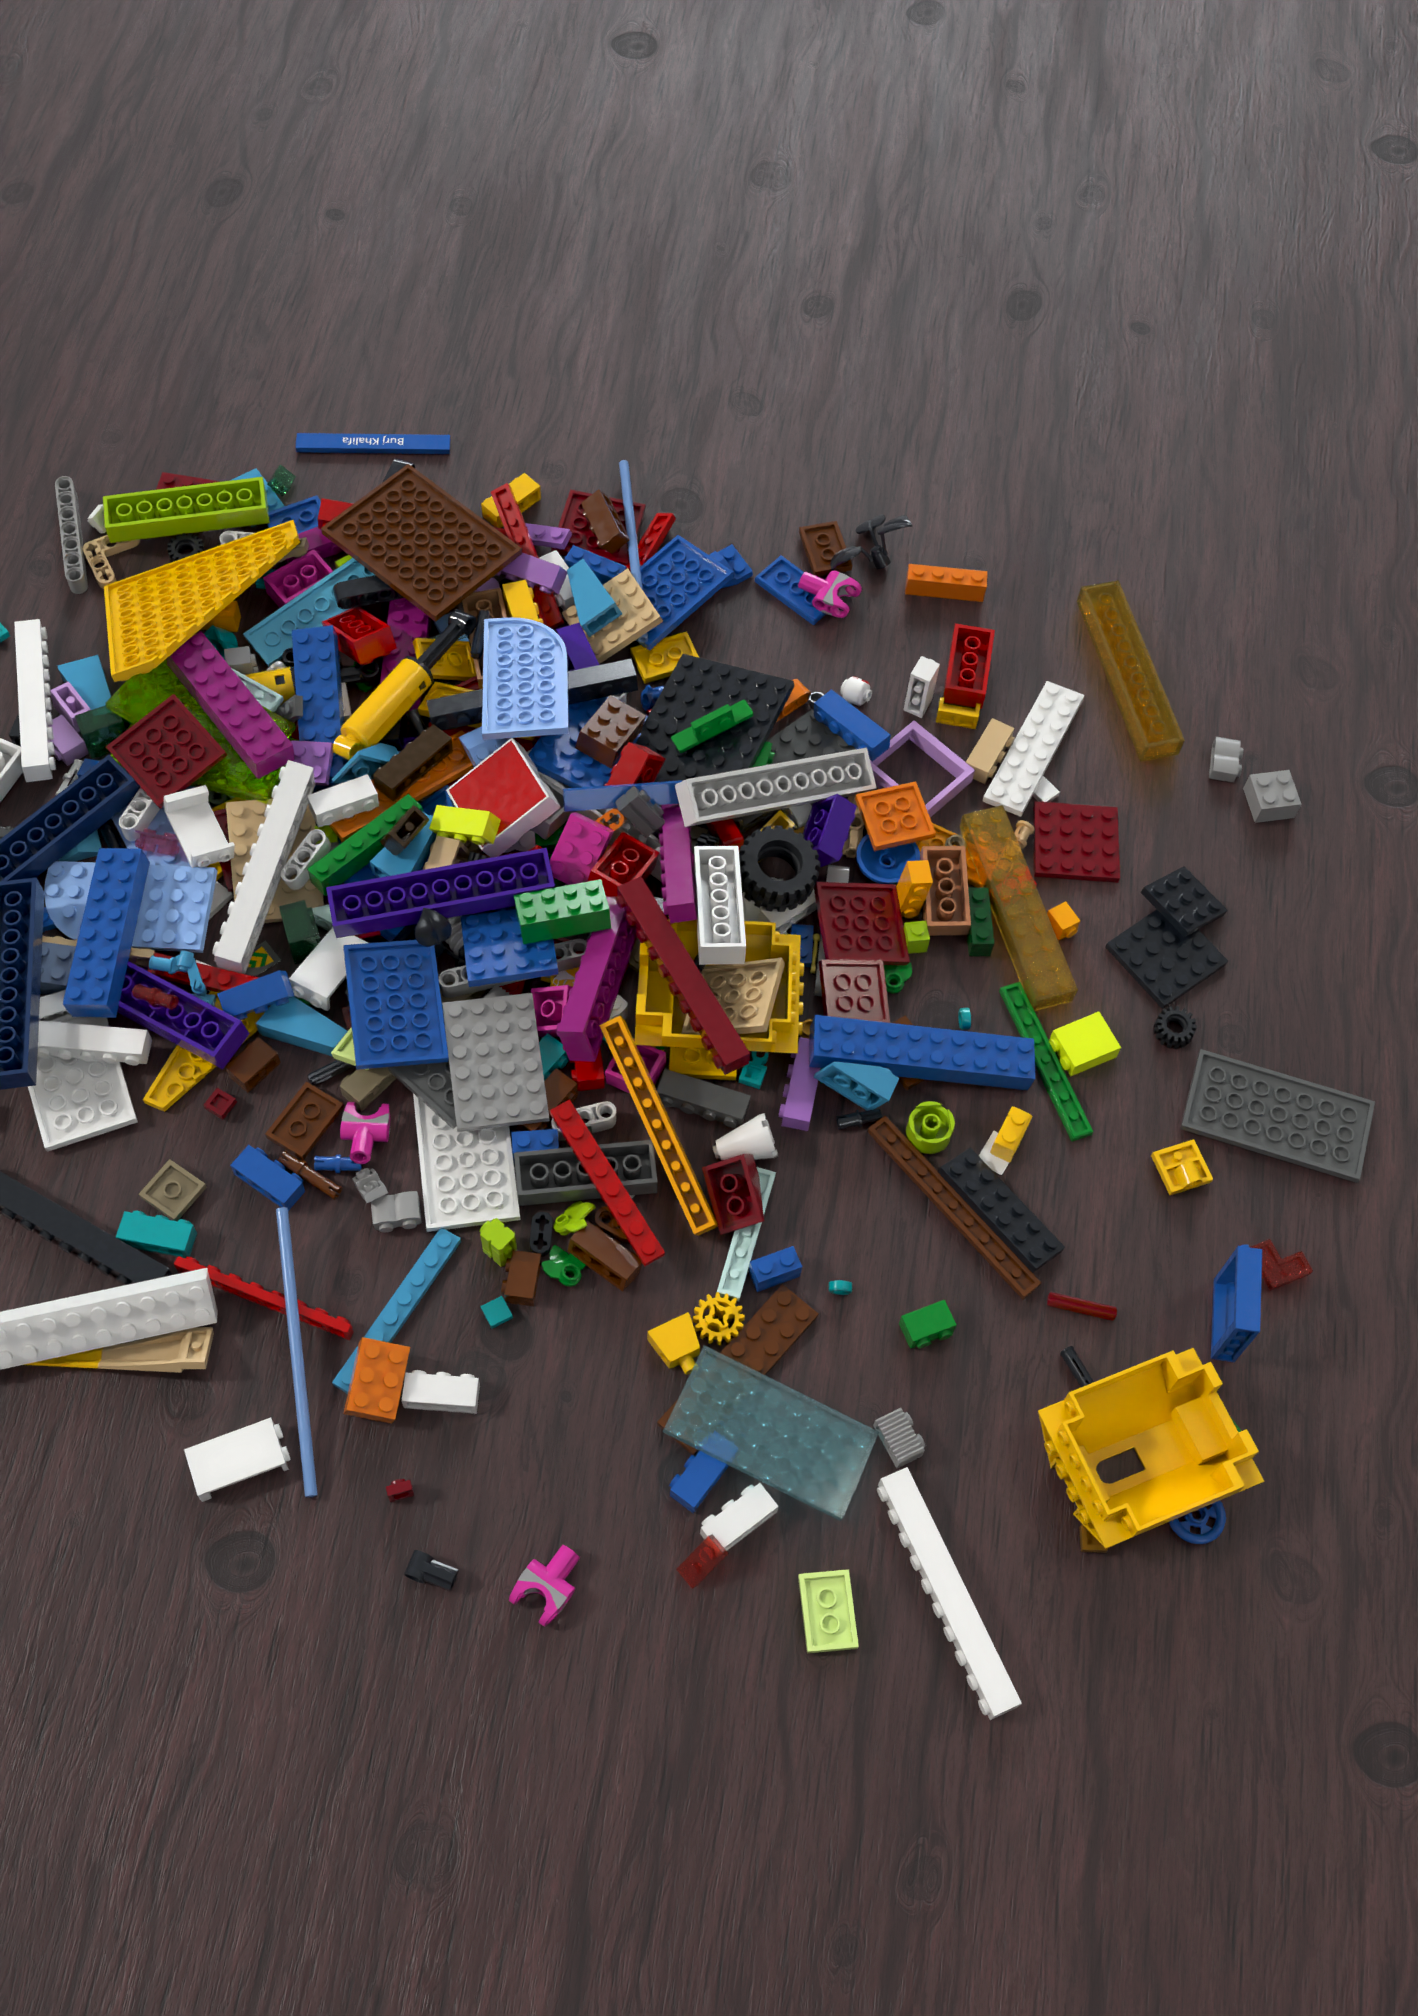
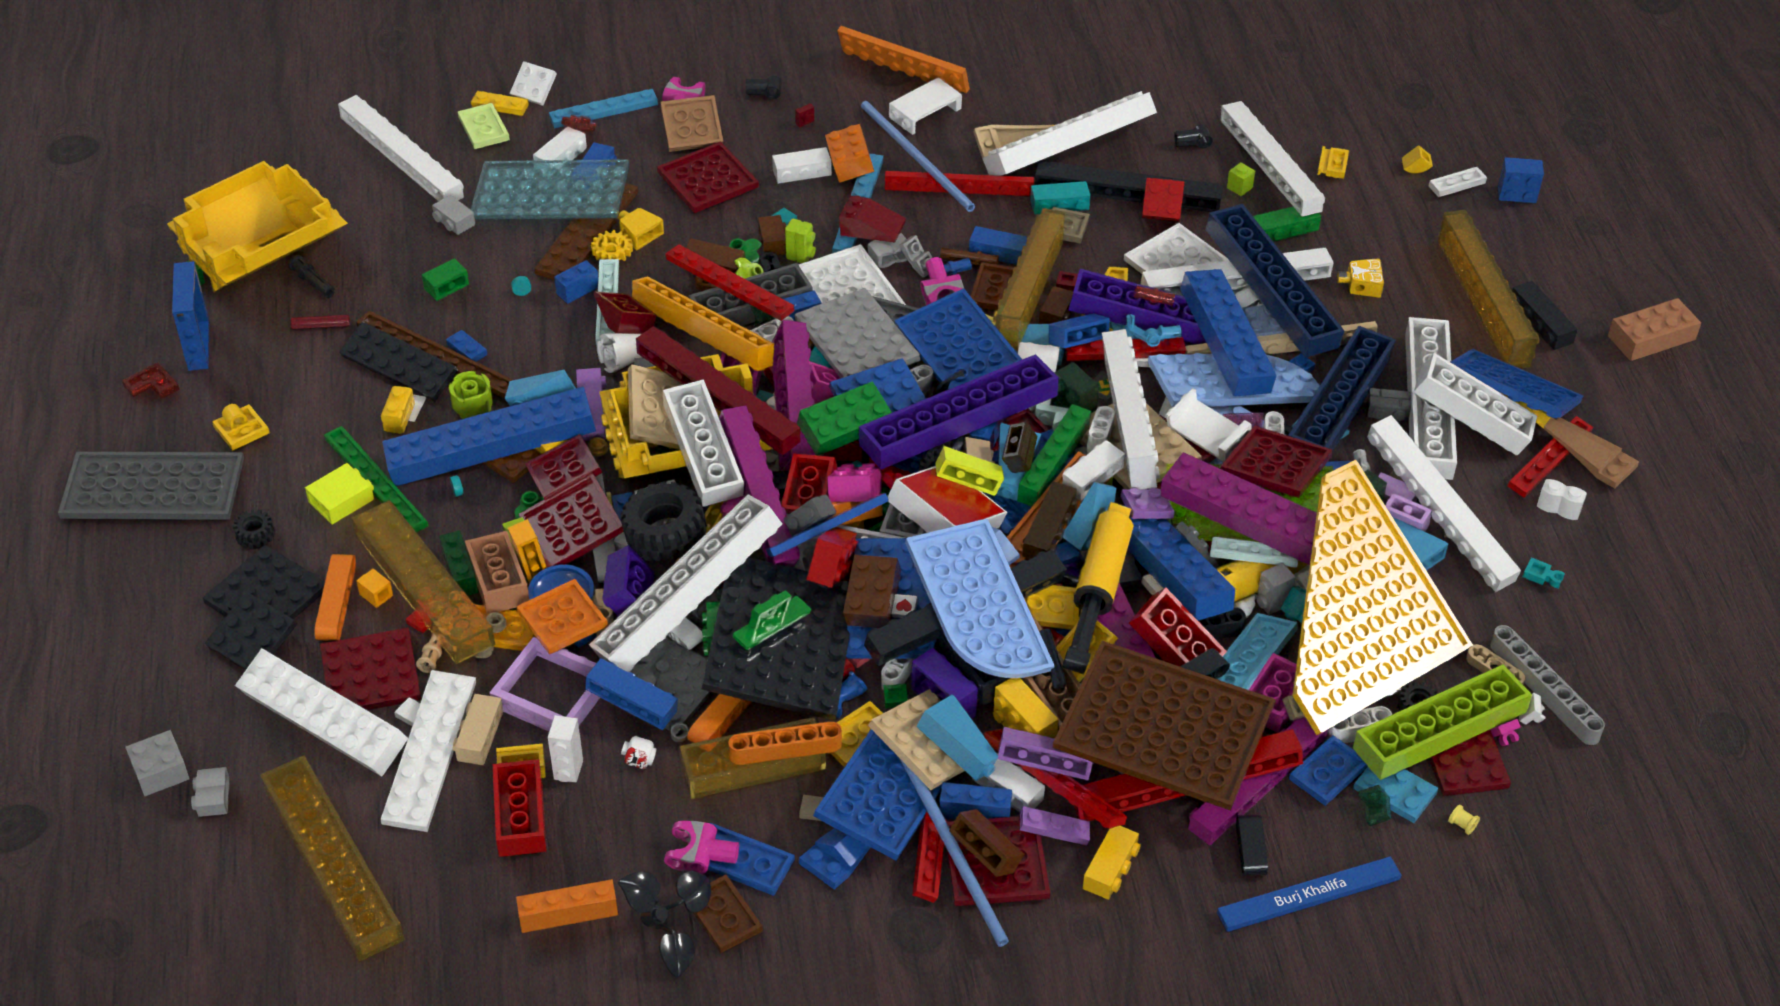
camera: 165 degrees right, 15 degrees down
(45, 1174) = (1163, 199): none -> red brick
(219, 453) = (1464, 819): none -> light yellow bush
(226, 1553) = (902, 59): none -> orange plate
(267, 1084) = (1030, 276): none -> clear yellow brick
(403, 1240) = (869, 220): none -> dark red slope
(554, 1511) = (691, 123): none -> medium nougat plate
(564, 1412) = (707, 177): none -> dark red plate
(583, 714) = (903, 605): none -> white tile
(657, 1603) = (606, 107): none -> dark azure plate
(726, 612) = (808, 807): none -> dark tan tile
(737, 630) = (785, 743): none -> orange beam
(743, 1674) = (533, 83): none -> white plate
(767, 651) = (712, 772): none -> clear yellow brick
(795, 1662) = (502, 103): none -> yellow plate
(920, 1217) = (466, 346): none -> blue plate
(1100, 923) = (335, 597): none -> orange beam
(1127, 796) = (322, 712): none -> white brick

